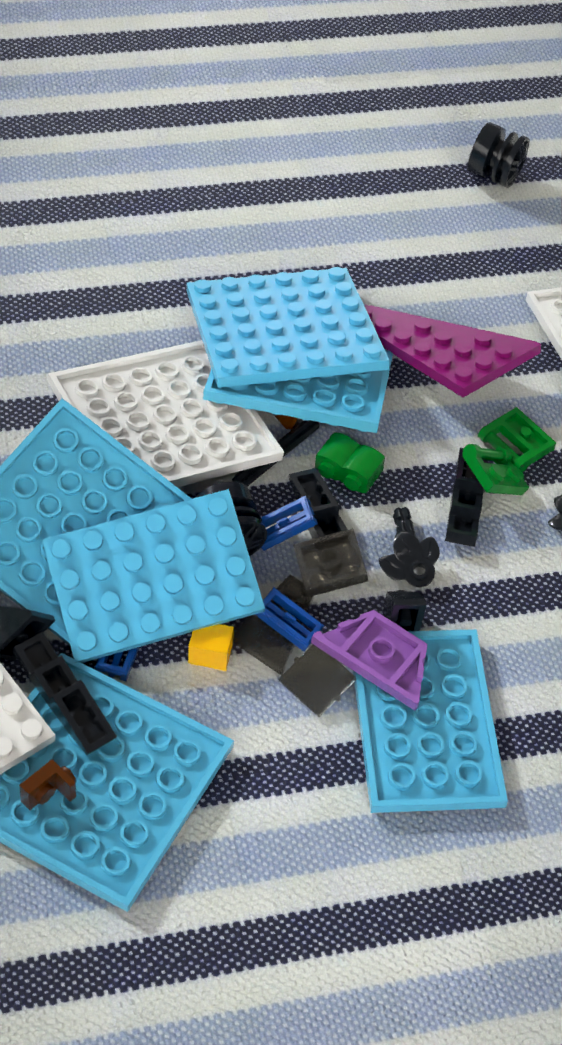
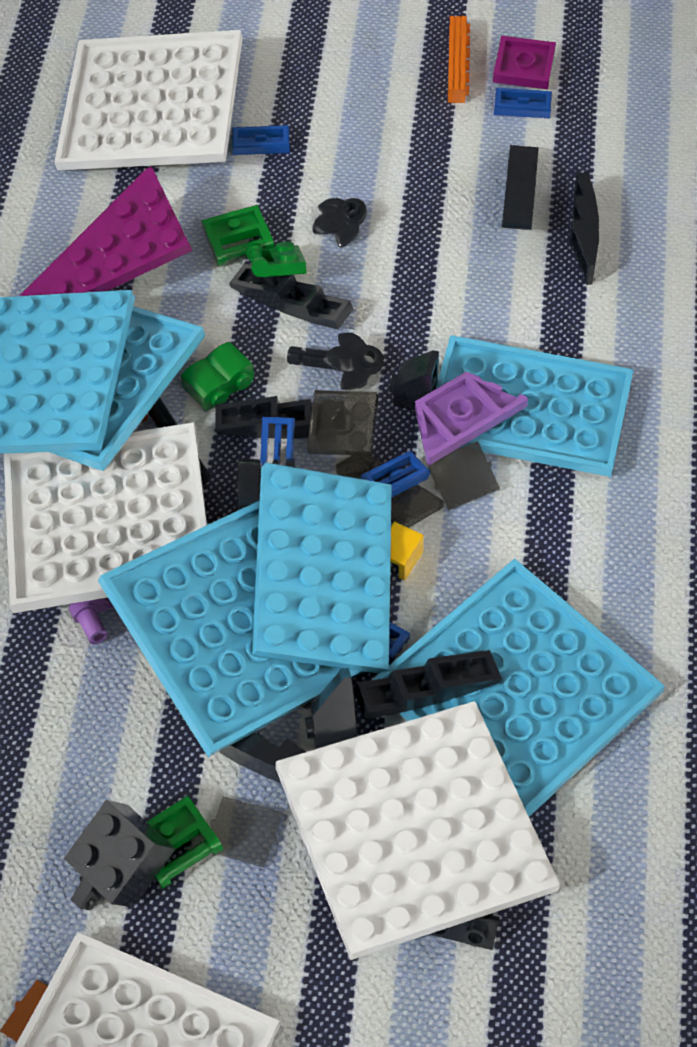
camera: 65 degrees left, 5 degrees up
(44, 782) = (530, 719): reddish brown bracket -> none

